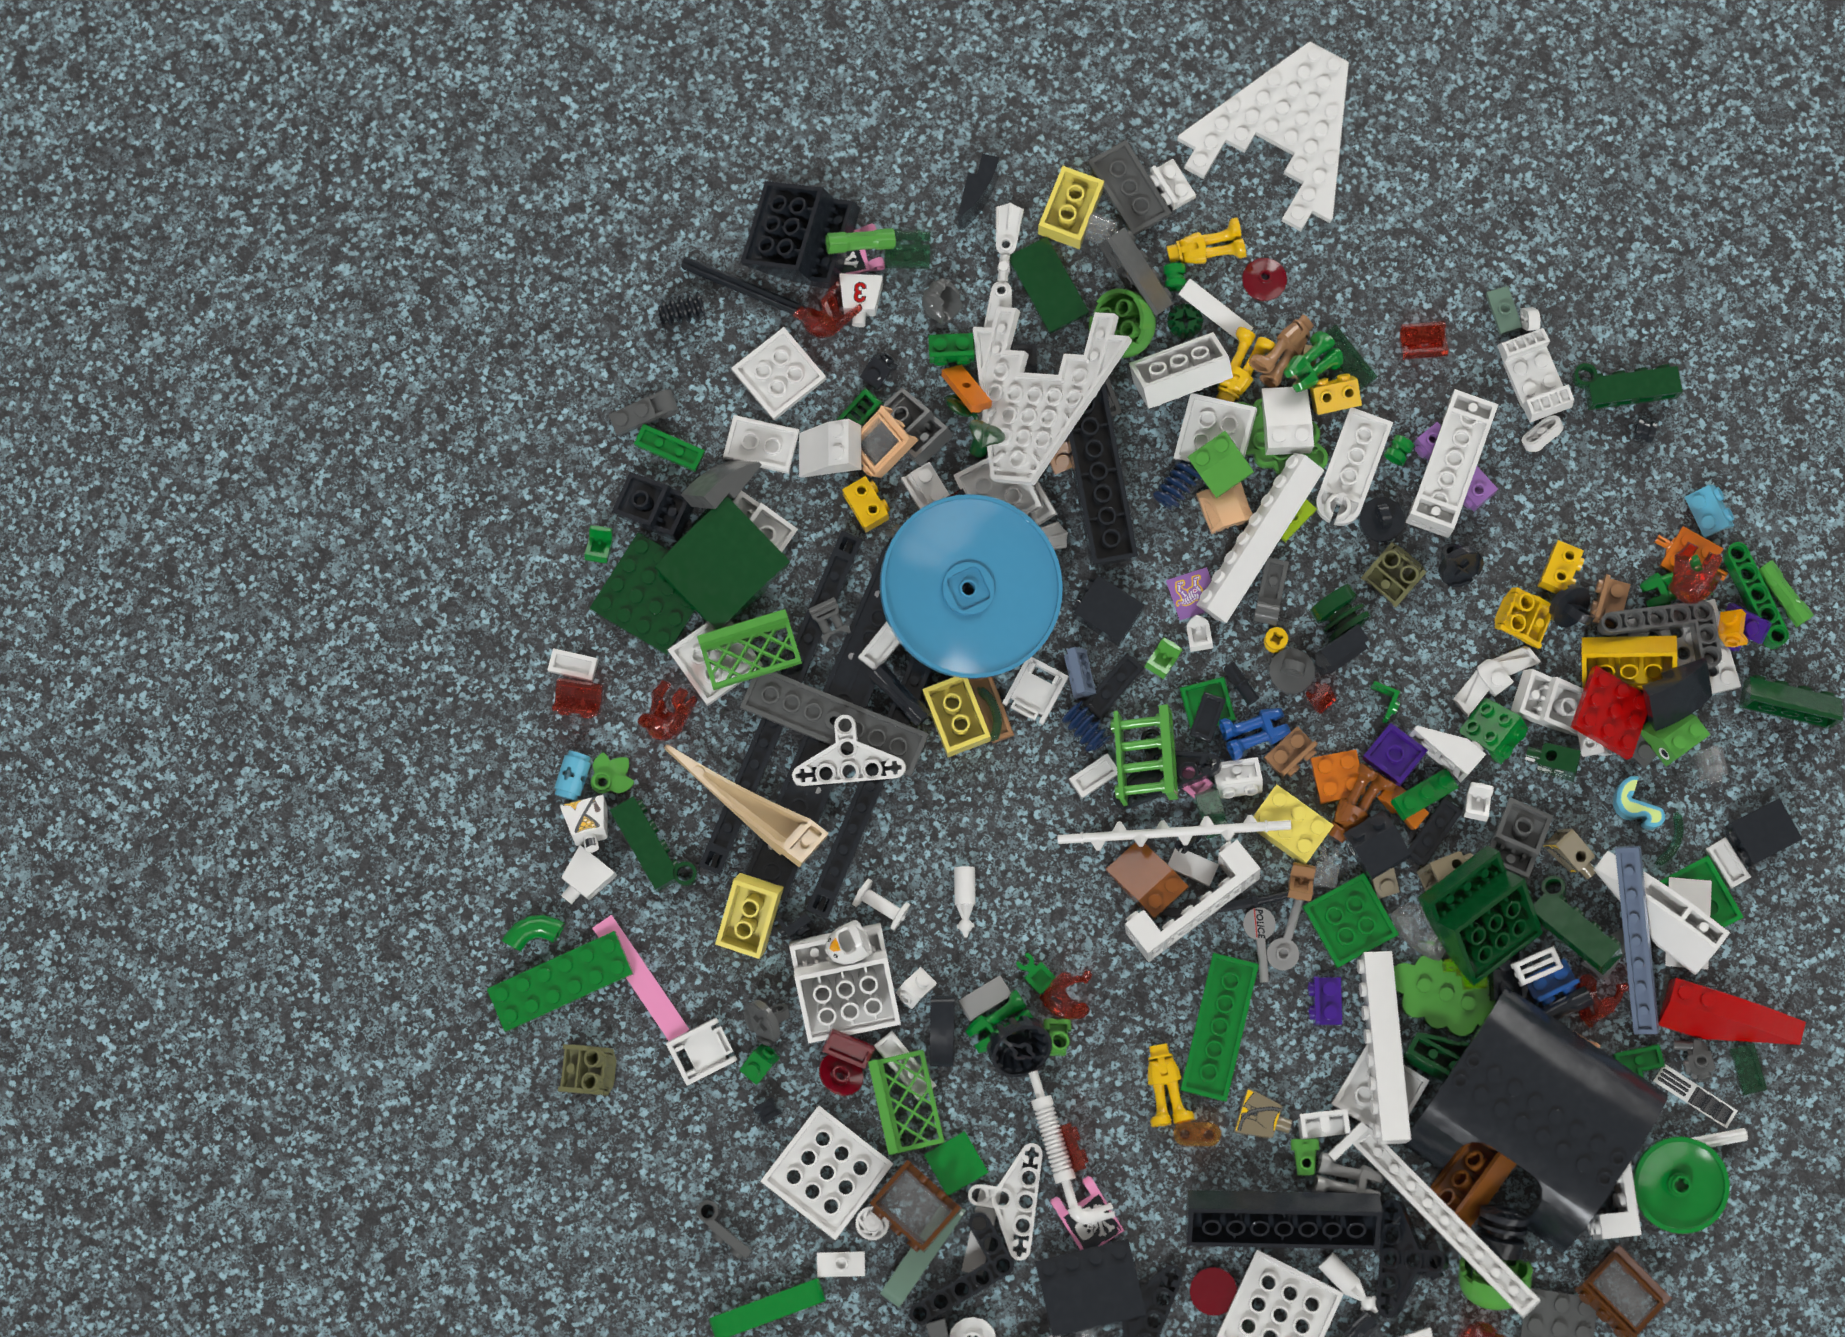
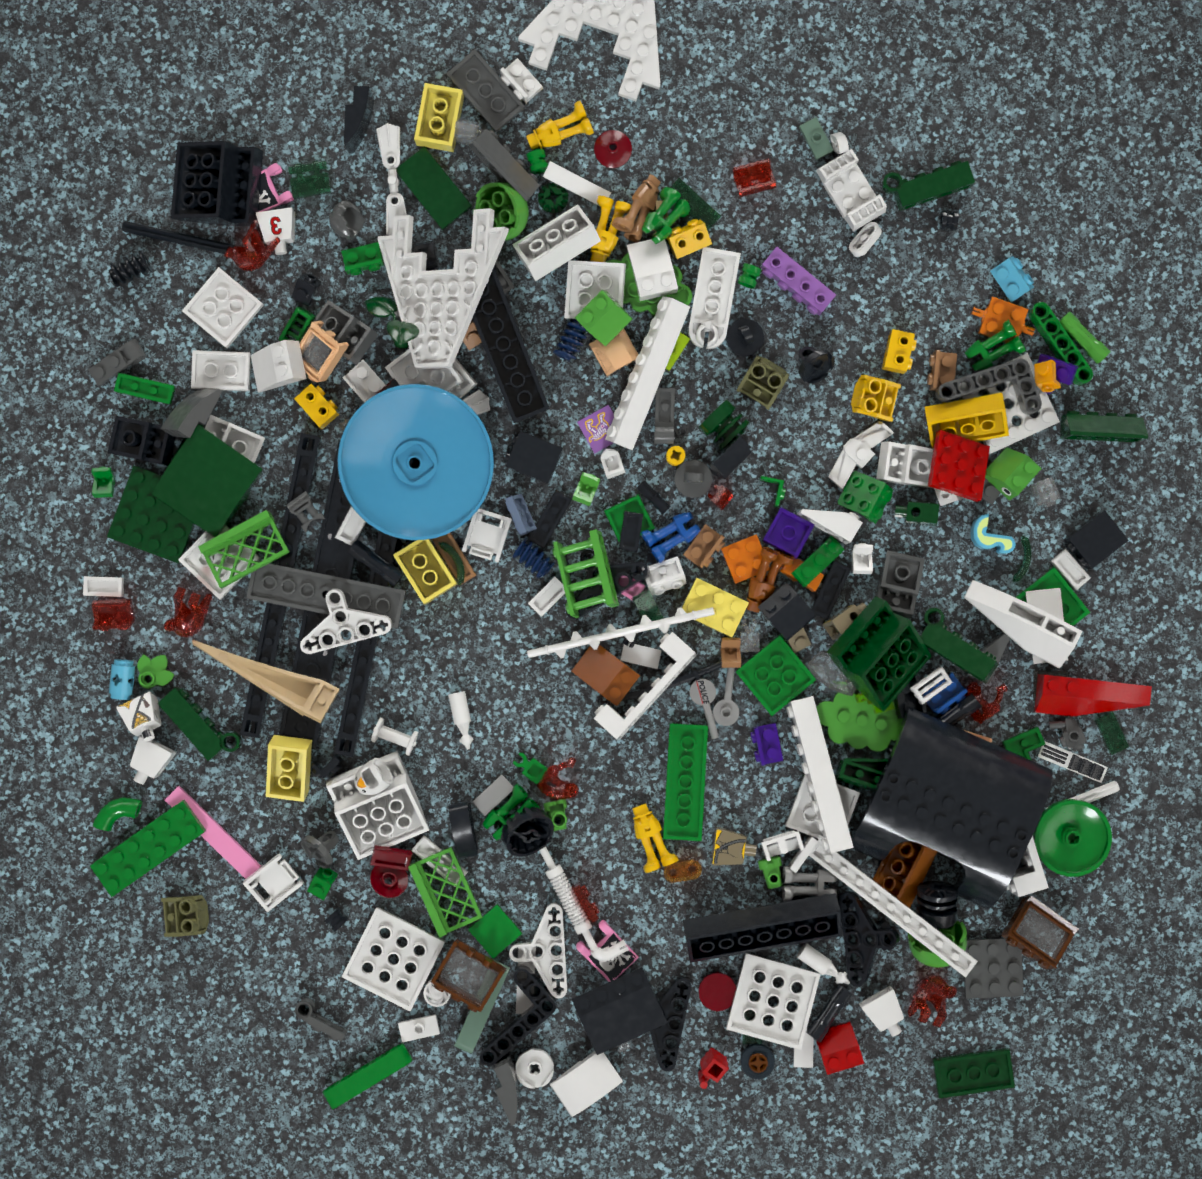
camera: 15 degrees left, 10 degrees up
(878, 239) = (252, 185): bright green axle -> none
(915, 988) = (436, 797): white bracket -> none
(966, 388) = (381, 292): orange tile -> none
(1452, 463) = (795, 279): white plate -> none
(1571, 607) = (912, 383): black tile -> none
(1571, 852) = (943, 586): dark tan torso -> none
(1637, 940) = (1008, 649): sand blue plate -> none
(1677, 693) = (1010, 440): black slope -> none
(1691, 585) = (1007, 349): clear red piece -> none

